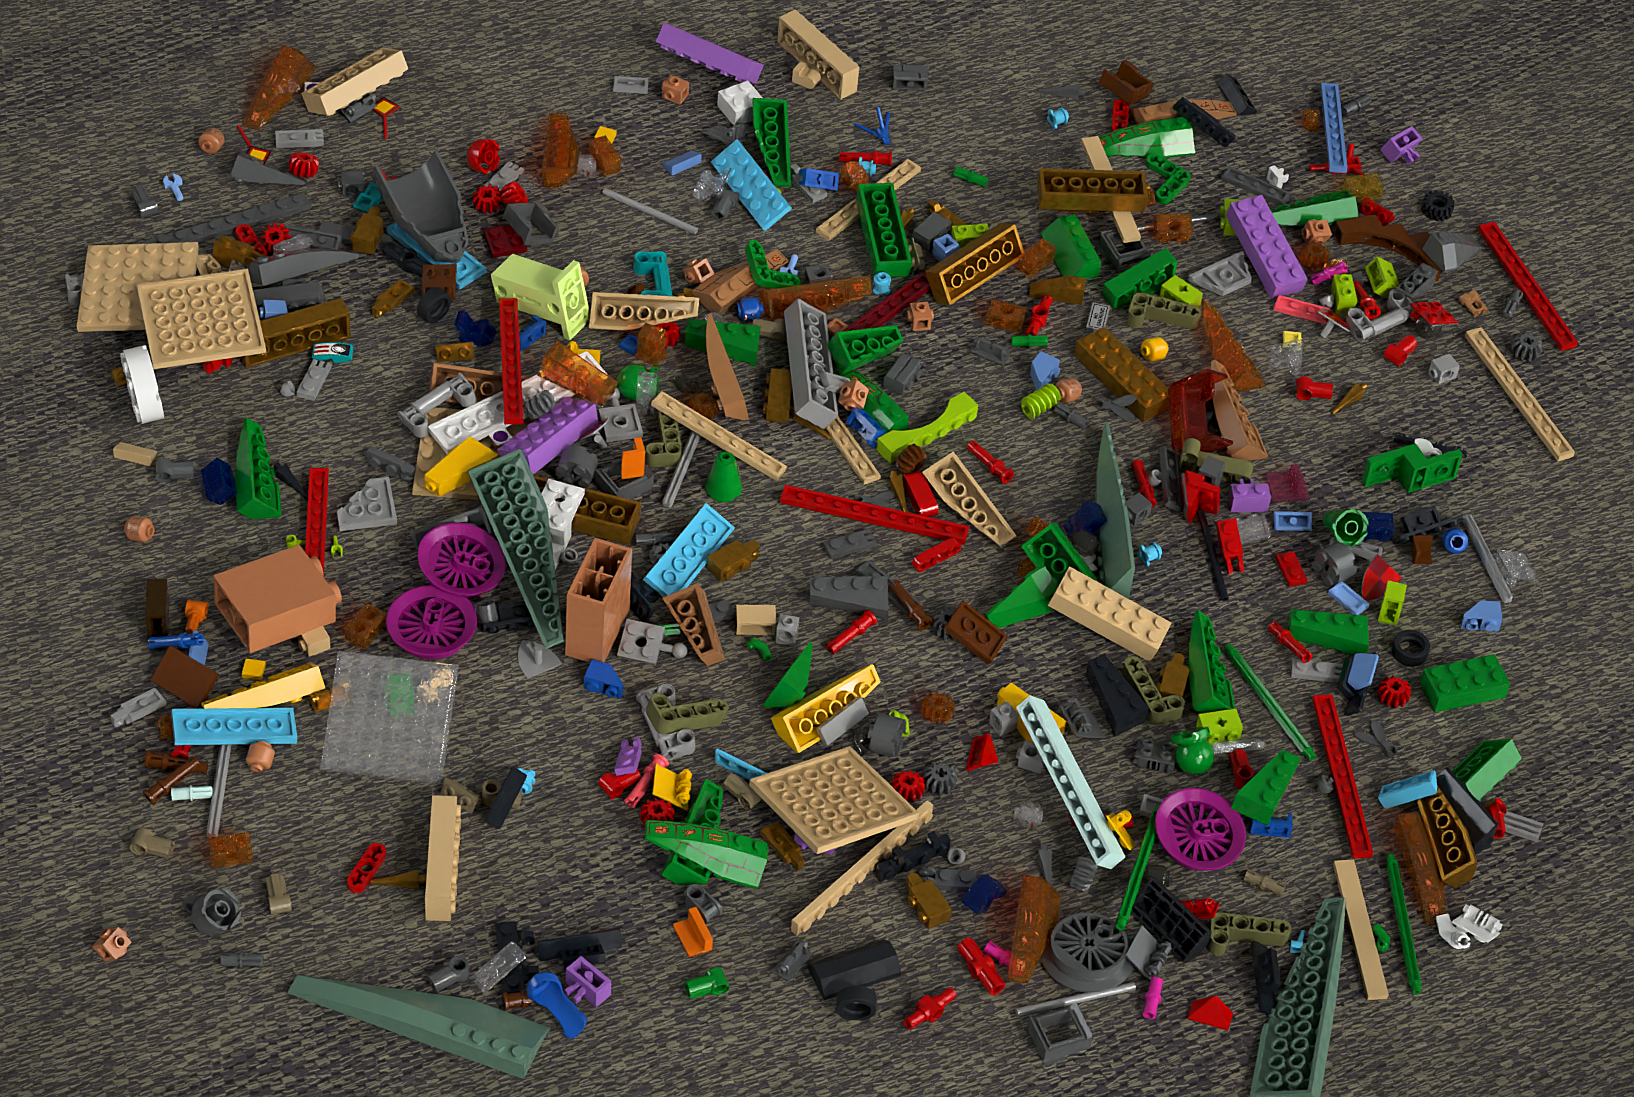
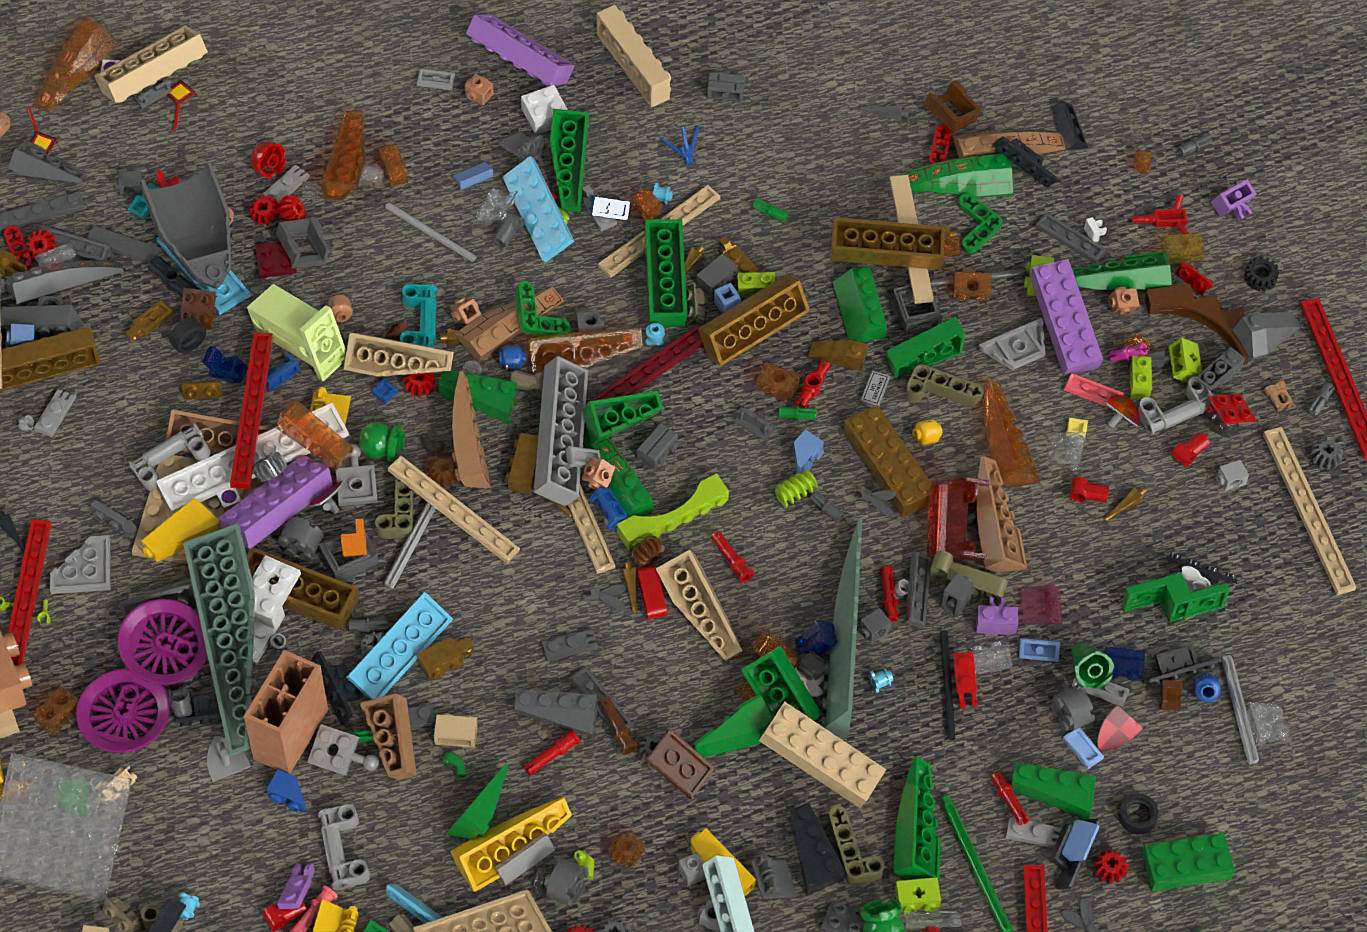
camera: 10 degrees right, 10 degrees up
(299, 138) = (86, 126): light grey hinge -> none
(303, 164) = (84, 159): red gear -> none
(336, 351) = (80, 381): slope -> none
(368, 231) = (135, 243): pearl gold hinge -> none
(610, 133) = (399, 137): yellow tile -> none
(646, 392) = (384, 455): clear hinge -> none
(651, 344) = (401, 396): clear orange brick -> none
(691, 716) = (391, 841): olive beam -> none
(724, 479) = (450, 563): green cone -> none
(787, 630) = (486, 746): light grey brick -> none
(790, 268) = (564, 308): light blue bar -> none
(805, 76) = (617, 79): tan leg -> none
(836, 326) = (598, 383): nougat tile -> none
(873, 514) = (601, 612): red plate -> none
(877, 157) = (673, 182): red pin -> none
(920, 316) = (687, 377): nougat brick -> none
(937, 553) = (656, 665): red beam -> none
(981, 753) = (664, 907): red slope -> none
(1036, 258) = (821, 314): clear orange brick -> none
(1057, 117) = (873, 143): medium azure brick -> none
(1069, 389) = (828, 476): nougat head -> none
(1173, 677) = (879, 834): pearl gold hinge -> none
(1180, 291) = (967, 366): lime brick -> none
(1198, 495) = (939, 615): red piece -> none
(1291, 569) = (1028, 707): red plate -> none
(1314, 255) = (1117, 327): clear orange gear -> none
(1327, 301) = (1122, 383): light grey hinge -> none
(1333, 128) = (1164, 173): medium blue plate -> none
(1367, 303) = (1162, 391): red pin -> none
(1392, 603) = (1126, 760): lime brick -> none
(1483, 616) = (1222, 781): medium blue slope -> none

